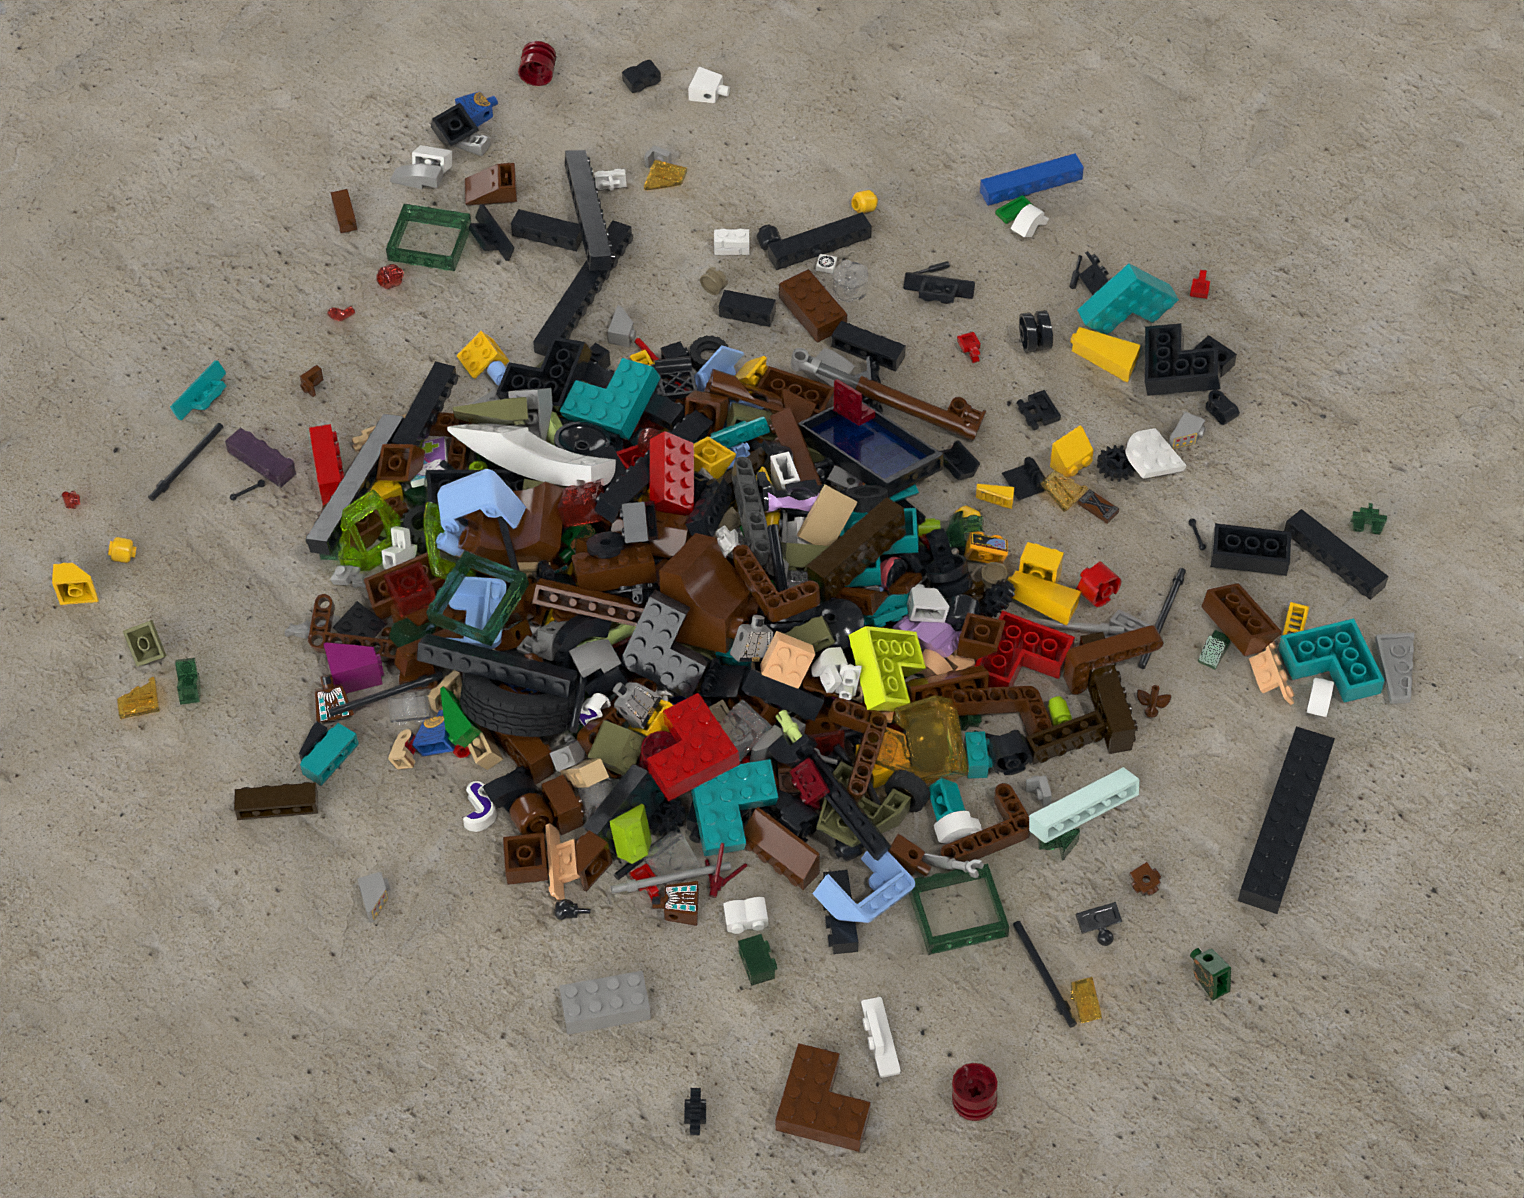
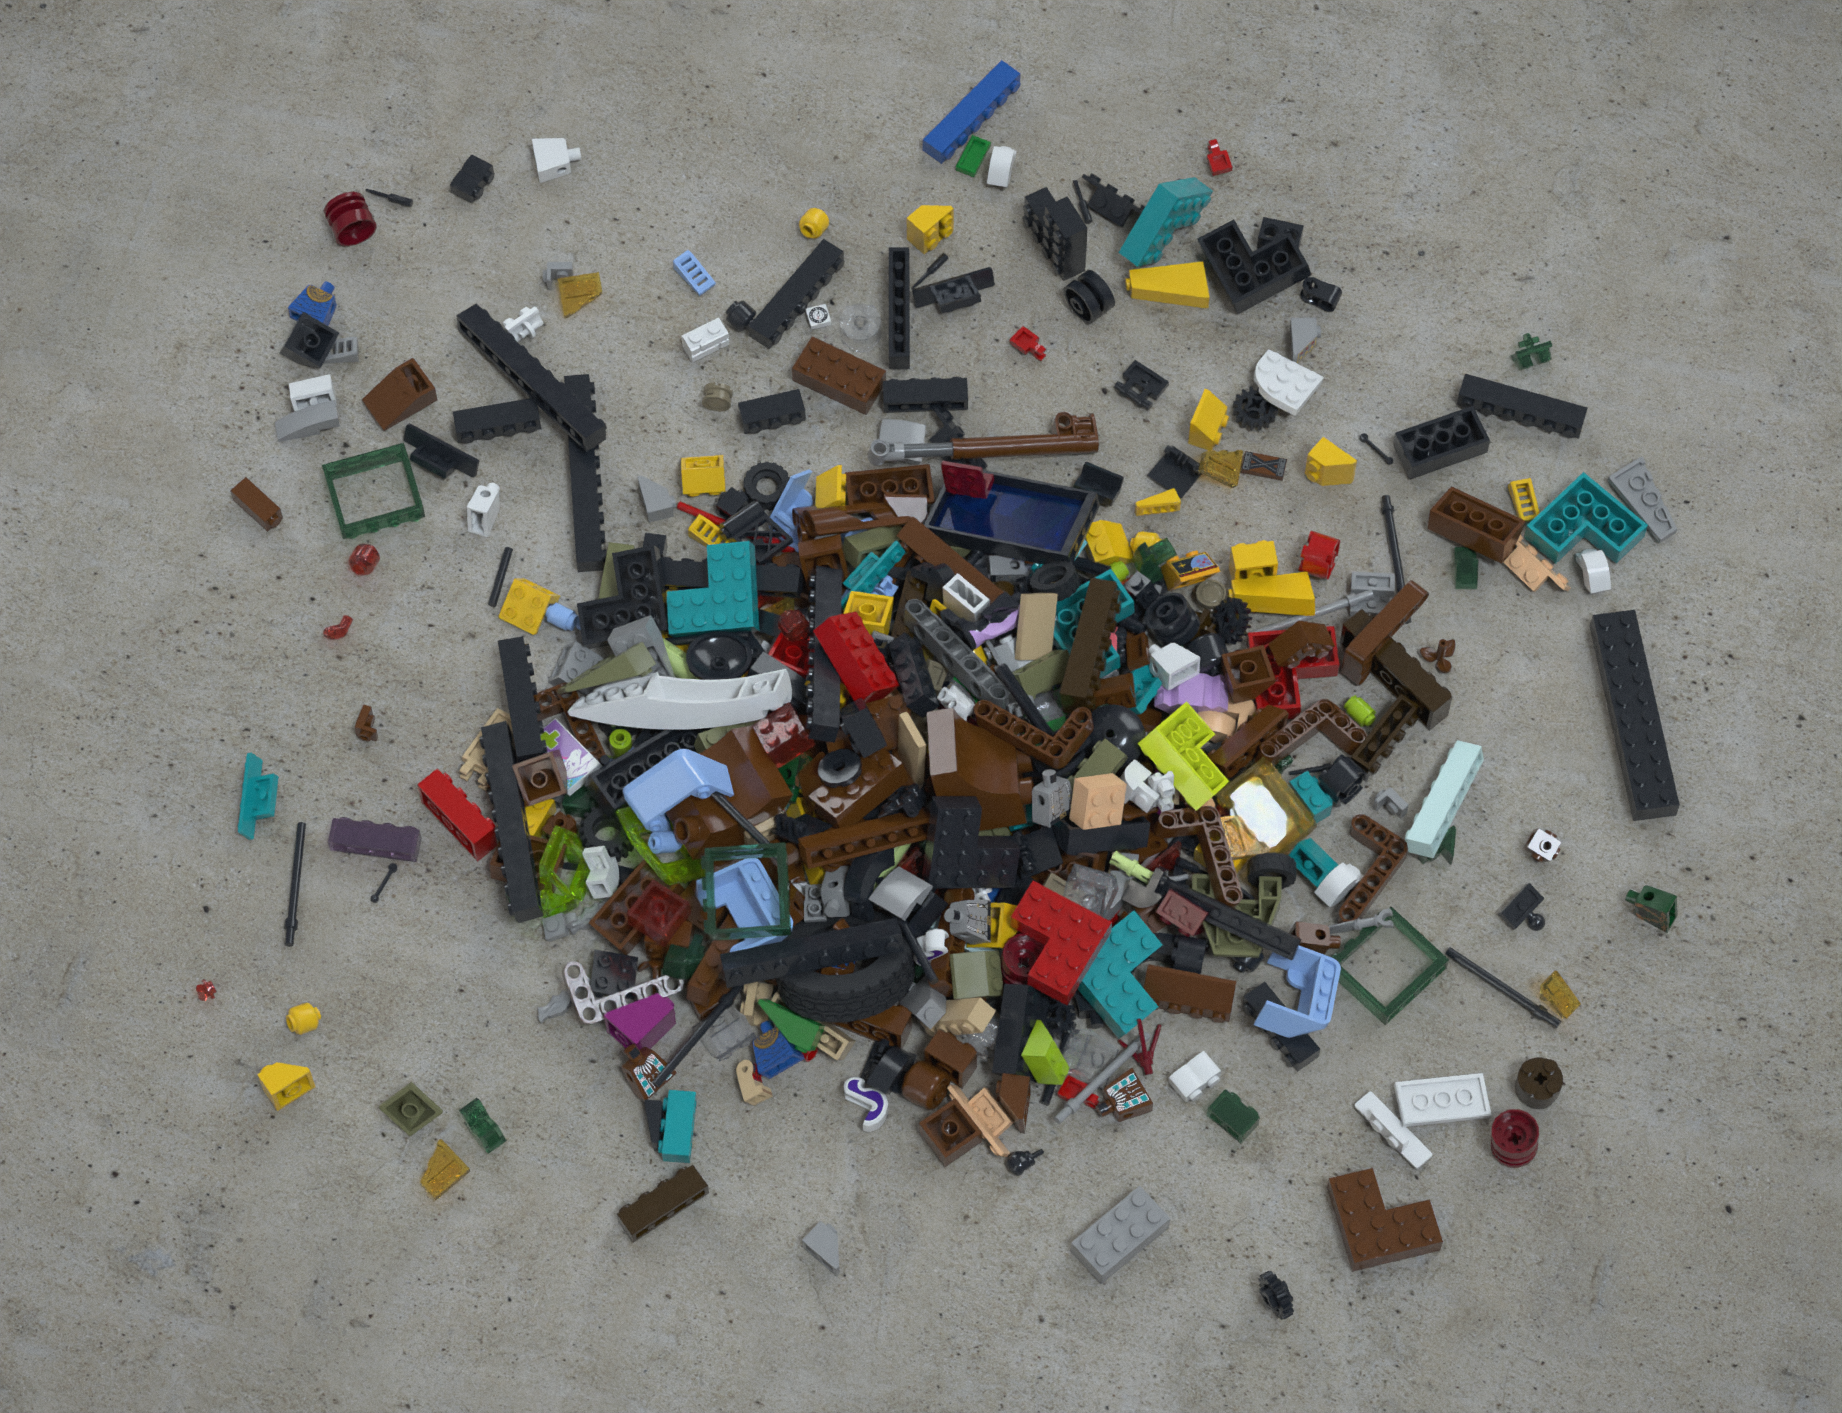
camera: 30 degrees left, 10 degrees up
(475, 331) = (500, 576): none -> black bar
(494, 280) = (483, 501): none -> white torso
(580, 67) = (393, 198): none -> black piece
(666, 327) = (703, 475): none -> yellow slope
(670, 541) = (911, 748): none -> tan tile
(755, 187) = (687, 261): none -> light blue slope
(887, 280) = (899, 308): none -> black brick
(936, 1033) = (1442, 1100): none -> white tile
(937, 501) = (1107, 543): none -> yellow slope
(947, 236) = (929, 226): none -> yellow slope
(1025, 1060) = (1528, 1078): none -> dark brown brick
(1036, 630) = (1301, 641): none -> reddish brown brick
(1038, 276) = (1058, 231): none -> black brick
(1148, 524) = (1329, 464): none -> yellow slope

